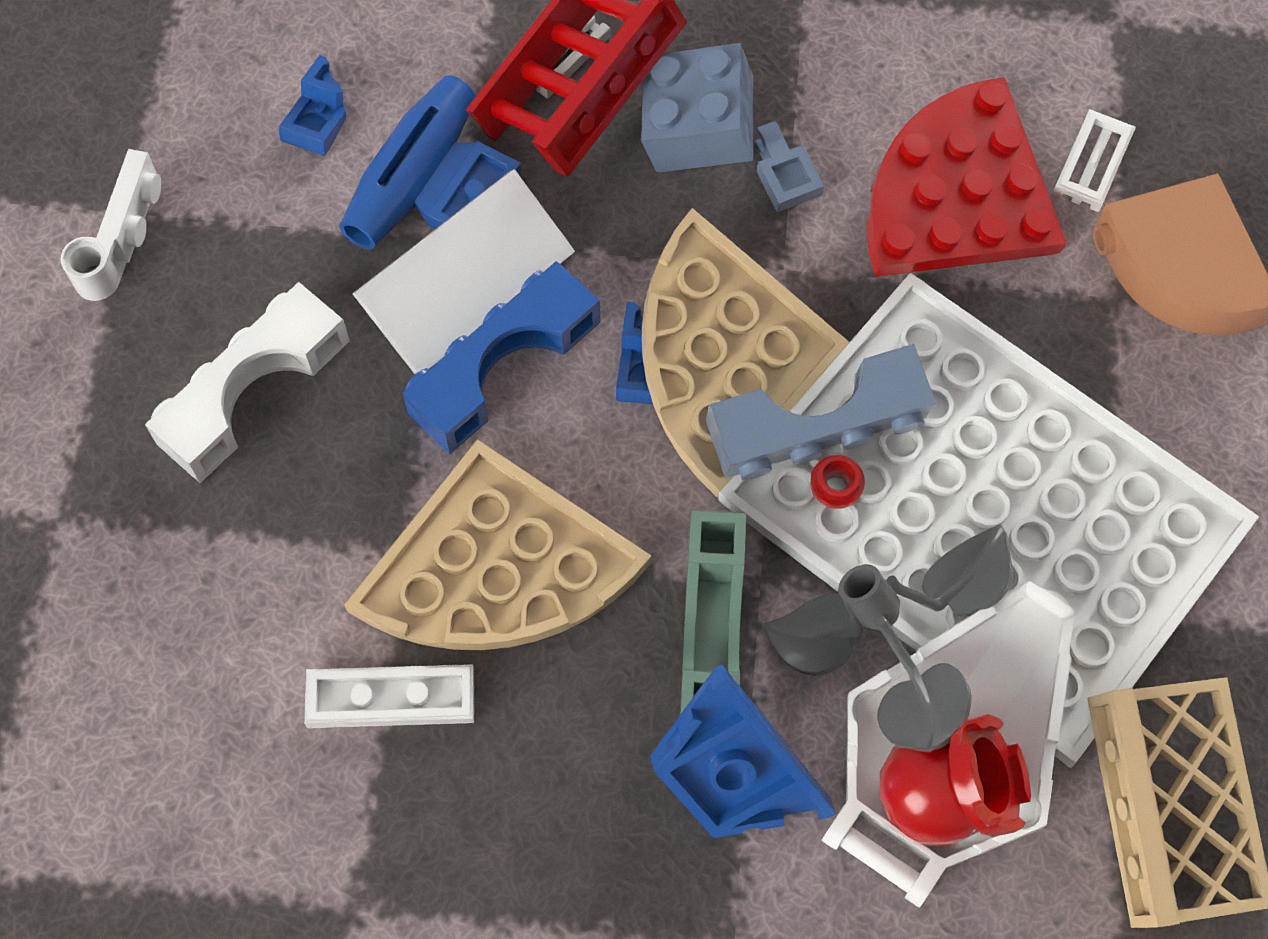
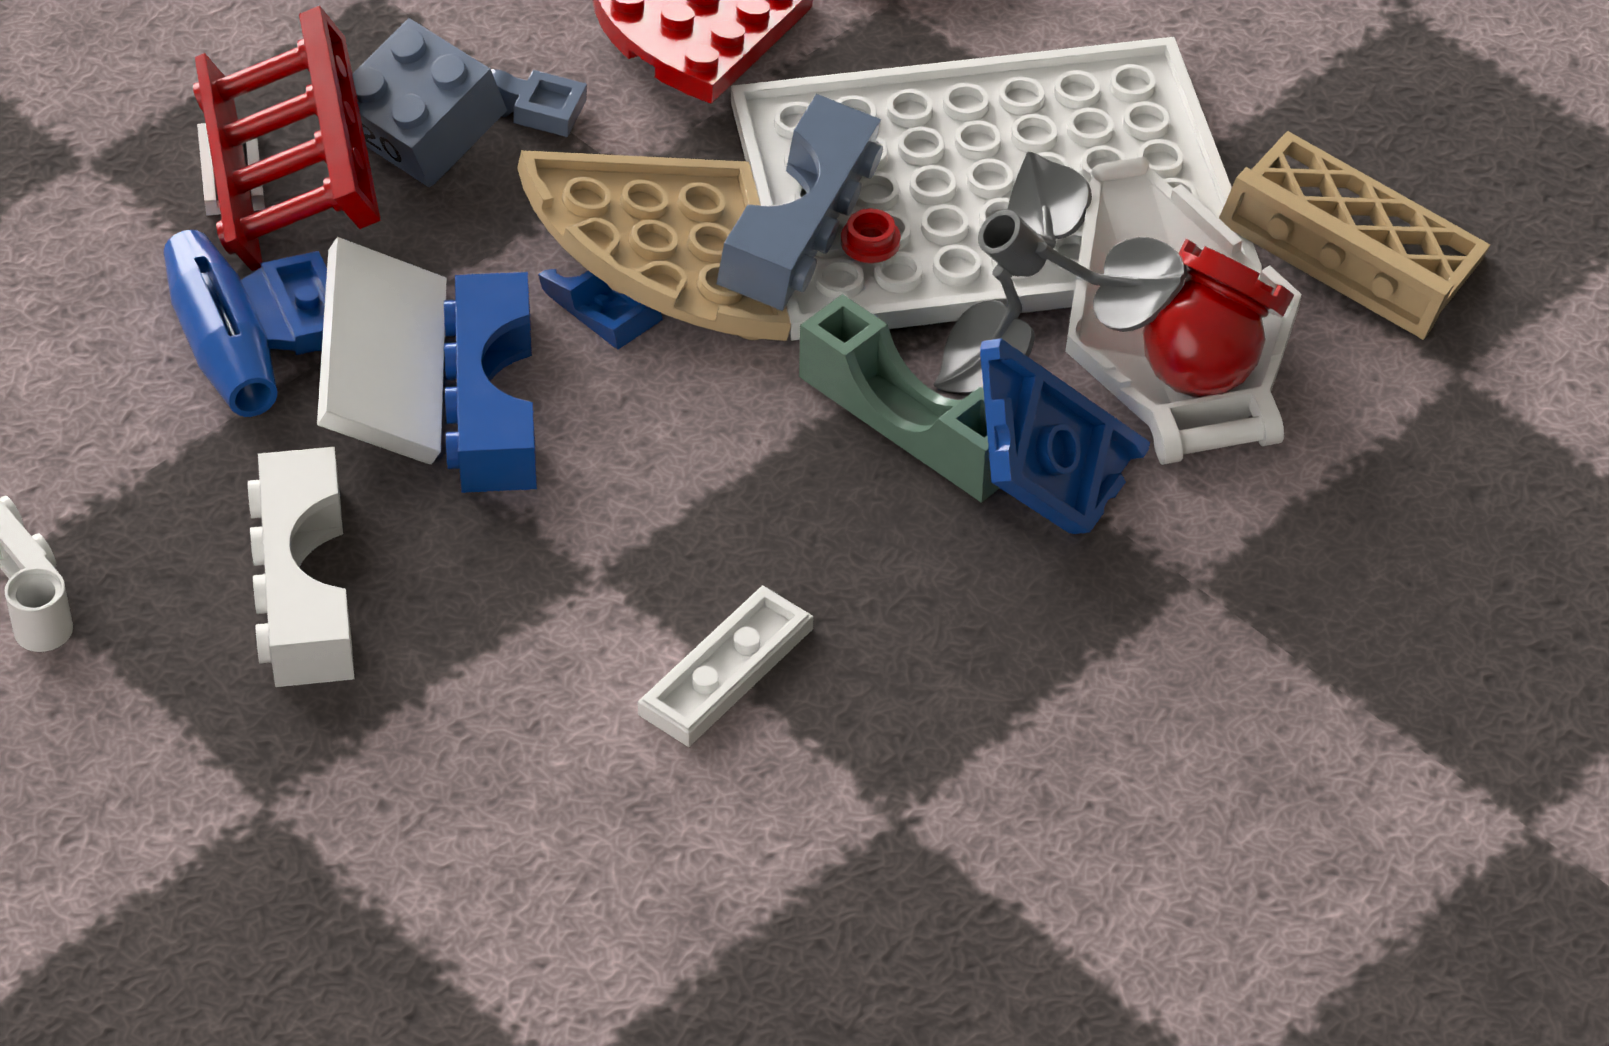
camera: 50 degrees left, 20 degrees down
(317, 113) = (74, 360): blue slope -> none
(495, 563) = (683, 511): tan plate -> none

